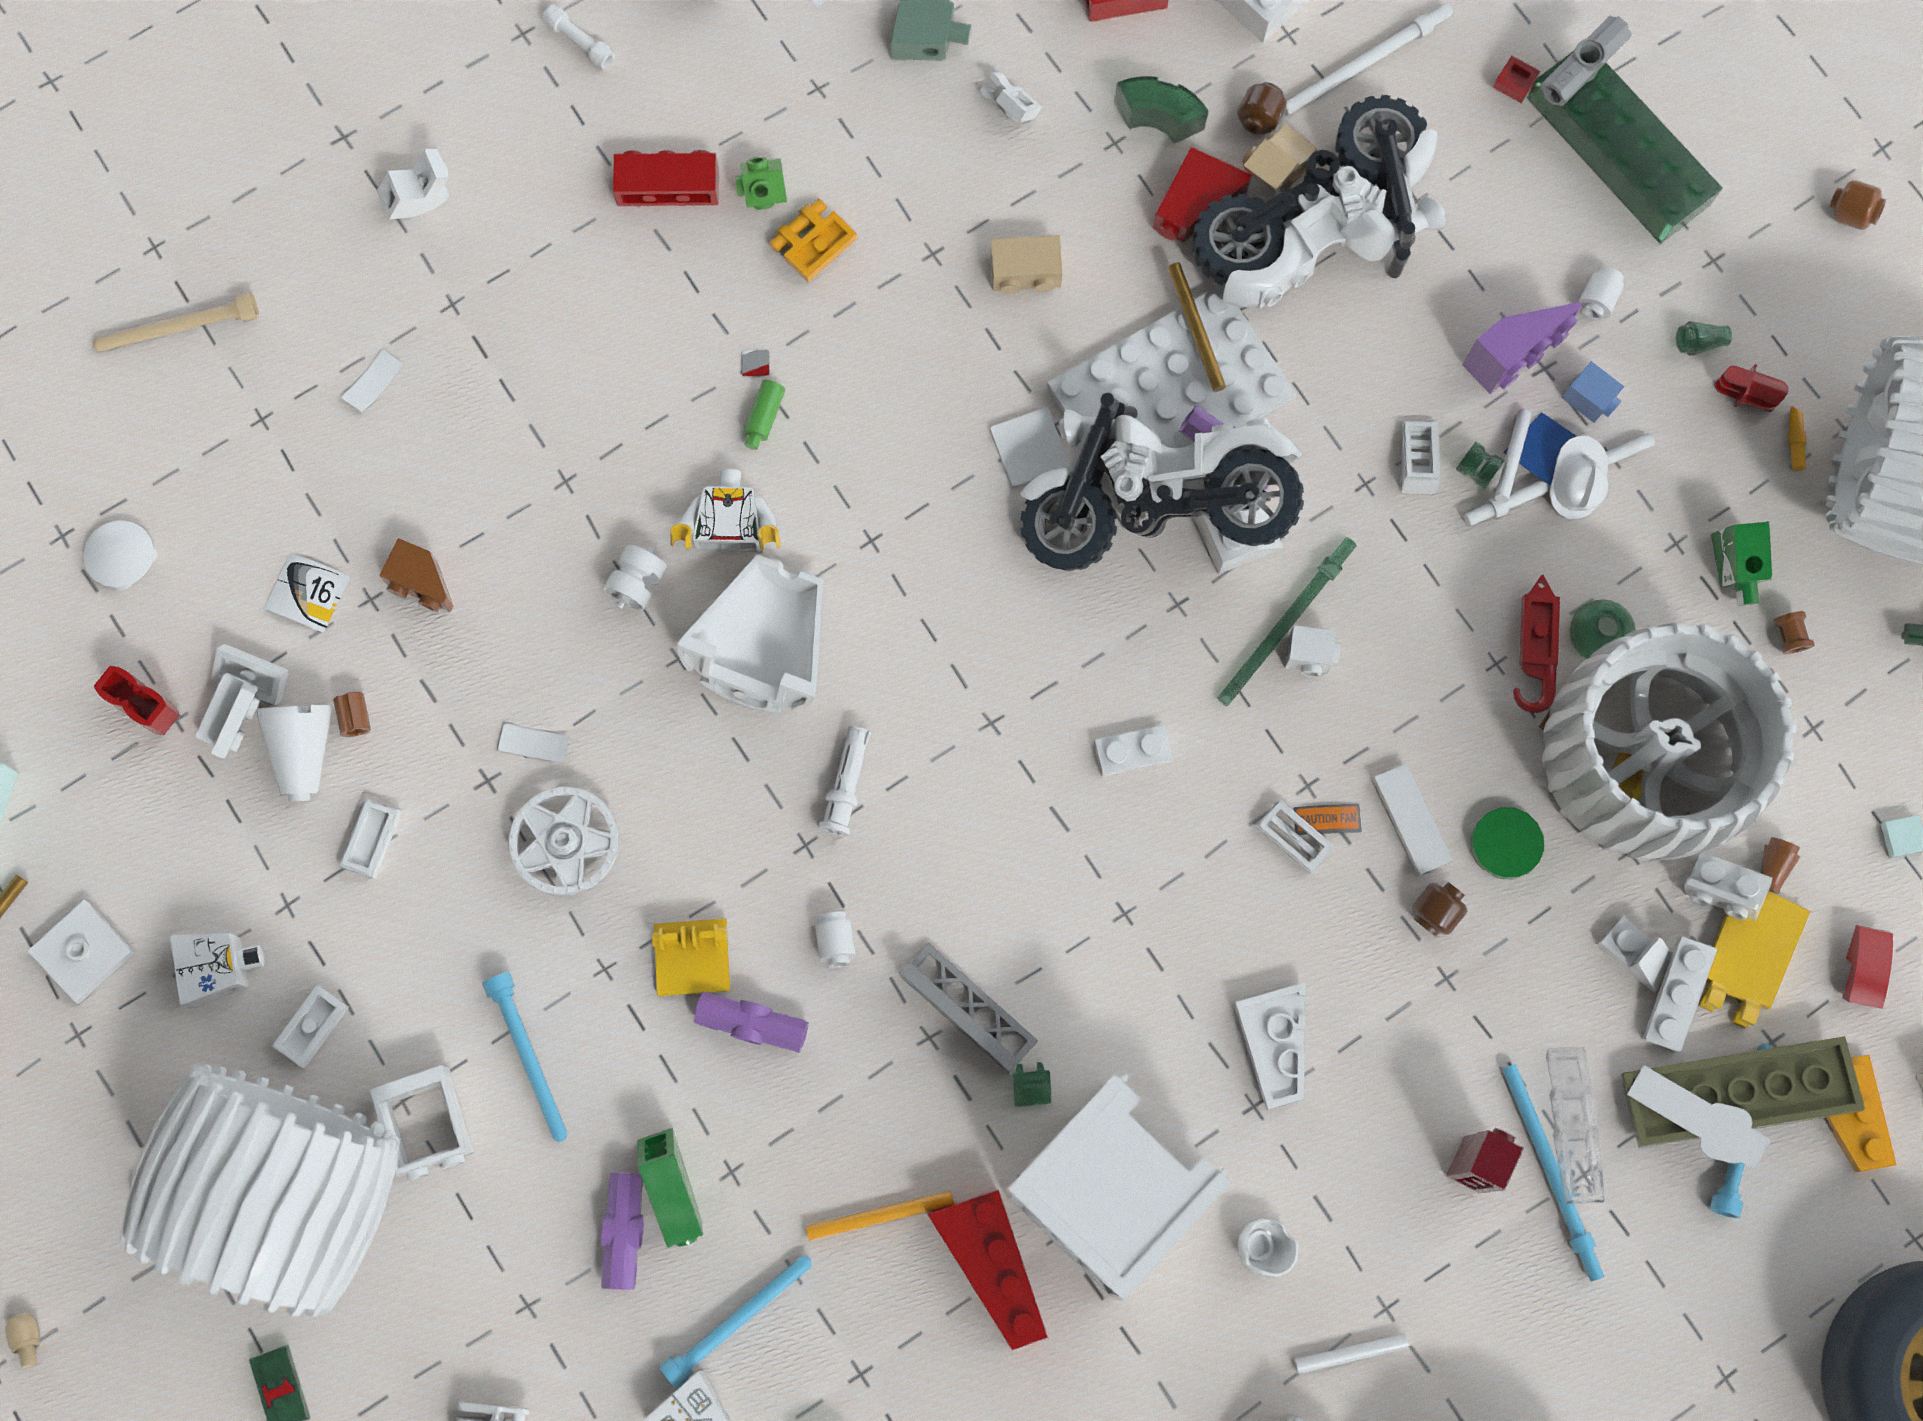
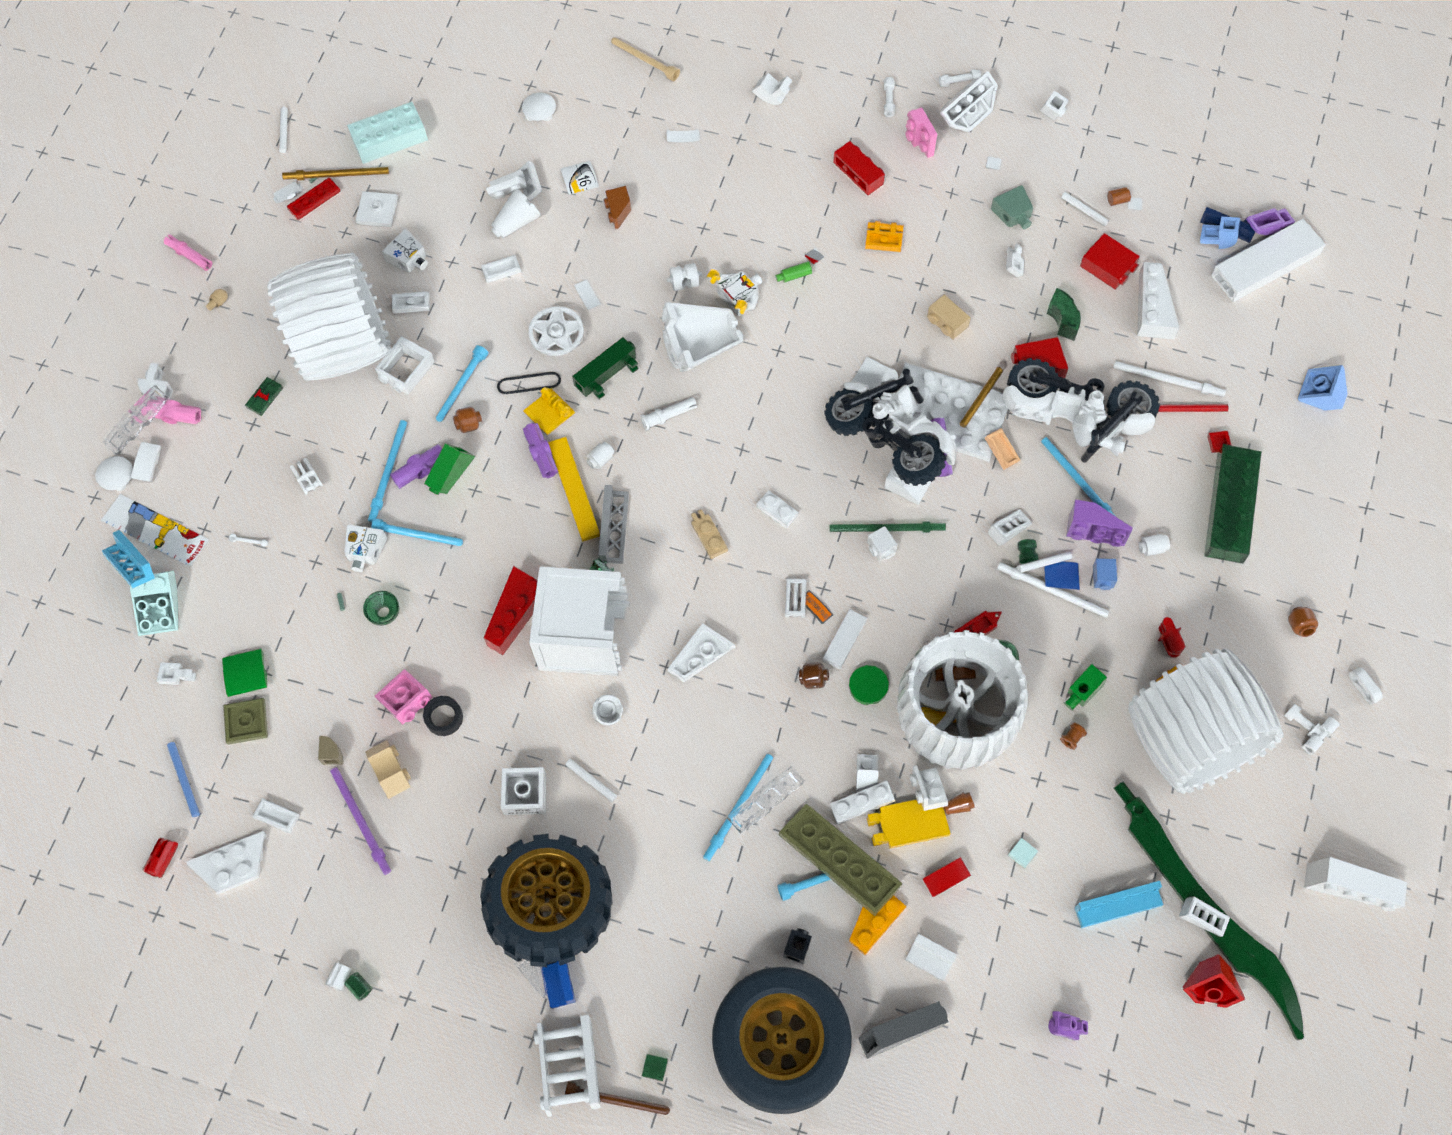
camera: 55 degrees right, 10 degrees down
(136, 700) = (486, 152): red brick -> none
(352, 714) = (544, 225): dark orange piece -> none
(604, 1095) = (467, 419): none -> dark orange head
(624, 959) = (528, 376): none -> black piece
(632, 1343) = (377, 502): none -> medium azure bar
(688, 41) = (921, 131): none -> bright pink plate
(688, 815) = (604, 367): none -> dark green brick
(761, 183) = (889, 200): bright green brick -> none
(856, 1020) = (574, 489): none -> yellow tile
(879, 1215) = (496, 552): light orange bar -> none
(1093, 880) = (708, 534): none -> tan hinge
(1262, 108) = (1104, 353): reddish brown head -> none
(1279, 158) = (1081, 371): tan brick -> none
(1297, 366) = (1002, 449): none -> light nougat tile
(1440, 63) = (1194, 408): none -> red bar
(1485, 1161) = (715, 763): dark red brick -> none
(1492, 310) = (1075, 475): none -> medium azure bar
(1574, 71) = (1258, 453): light grey piece -> none
(1579, 477) = (1060, 595): white piece -> none
(1701, 337) = (1174, 600): clear green cone -> none
(1722, 1128) = (814, 860): white sticker -> none
(1833, 1253) = (797, 955): none -> black brick

